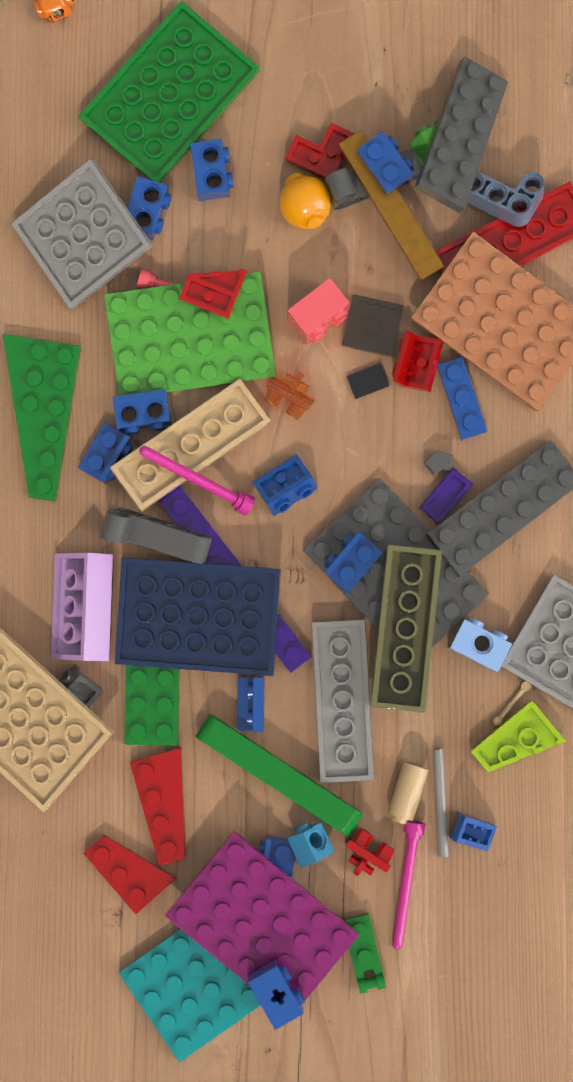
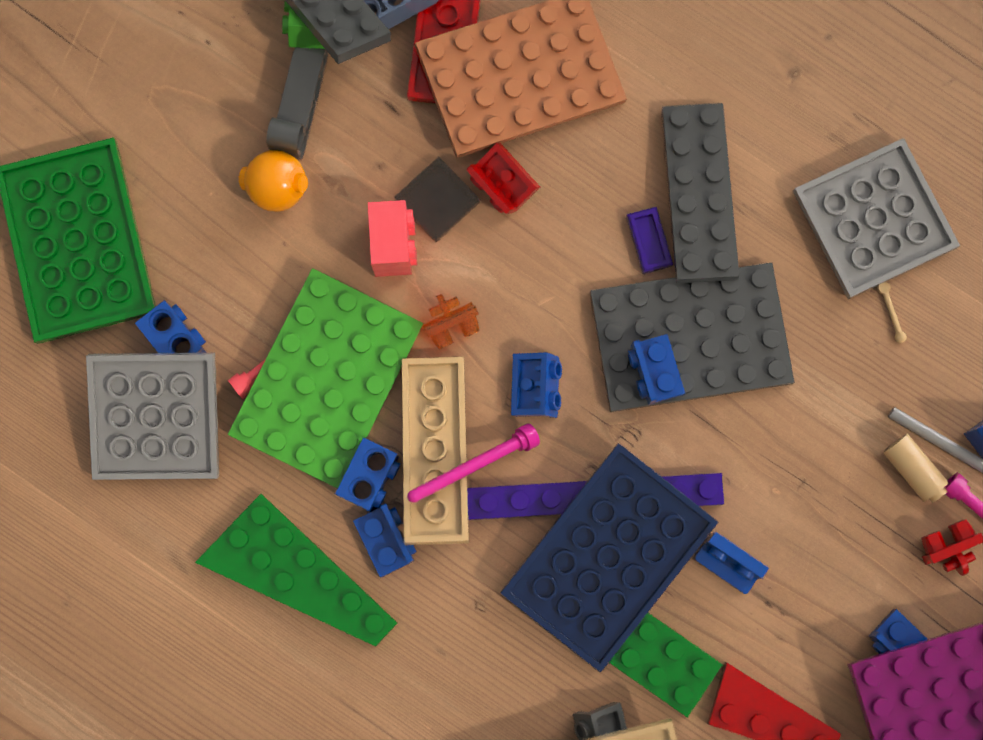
camera: 55 degrees left, 5 degrees down
(81, 606) = (522, 667): lavender slope -> none
(127, 525) = (501, 542): dark grey beam -> none
(207, 170) = (175, 255): blue brick -> none
(213, 290) = (300, 323): red wing -> none
(279, 775) = (817, 583): green beam -> none
(310, 843) = (907, 597): dark azure brick -> none
(319, 159) = (244, 137): red plate -> none
(342, 701) = (785, 472): light grey plate -> none
(368, 381) = (487, 239): black piece -> none
(385, 162) = (292, 76): blue bracket -> none
(394, 213) = (335, 102): pearl gold tile -> none
(405, 628) = (758, 361): olive brick -> none
(439, 462) = (613, 224): dark grey piece -> none
(461, 398) = (565, 163): blue plate -> none
(492, 656) = (835, 299): light blue brick -> none
(518, 737) = (930, 327): lime wing -> none

